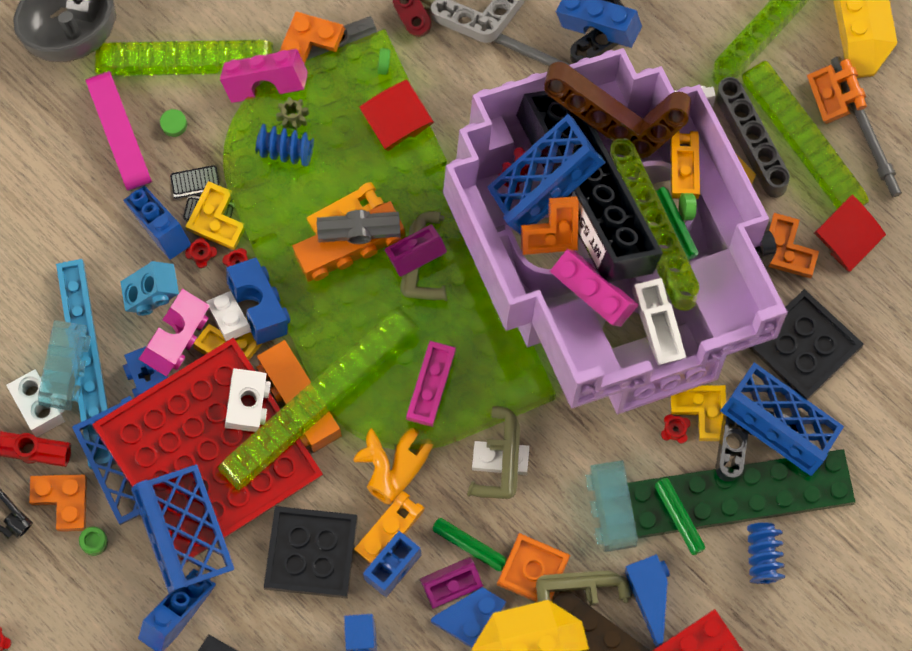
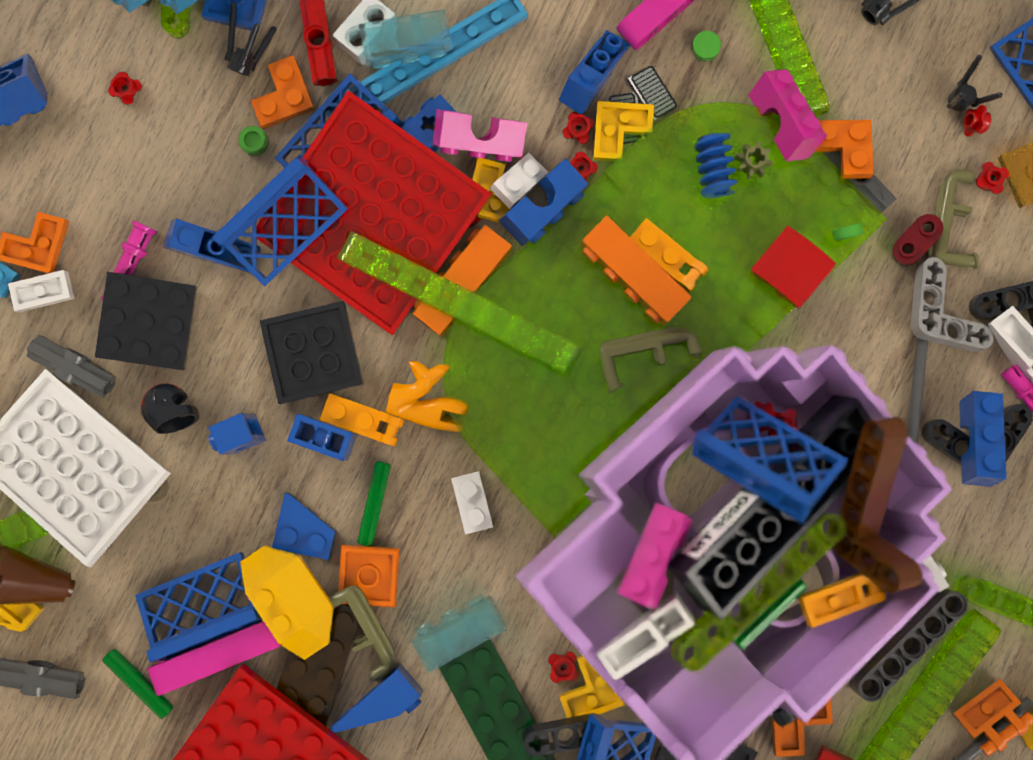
camera: 70 degrees right, 15 degrees up
(149, 288) = (517, 91): dark azure brick -> none
(247, 383) = (410, 232): white brick -> none
(358, 227) = (648, 275): dark grey piece -> none
(416, 250) = (649, 342): magenta slope -> none
(431, 383) = (514, 409): dark pink plate -> none
(451, 582) = (331, 498): magenta slope -> none
(510, 458) = (468, 515): olive piece -> none
(558, 234) = (704, 493): orange plate -> none
(680, 516) = (468, 706): green axle -> none
(687, 206) = (793, 619): bright green tile -> none

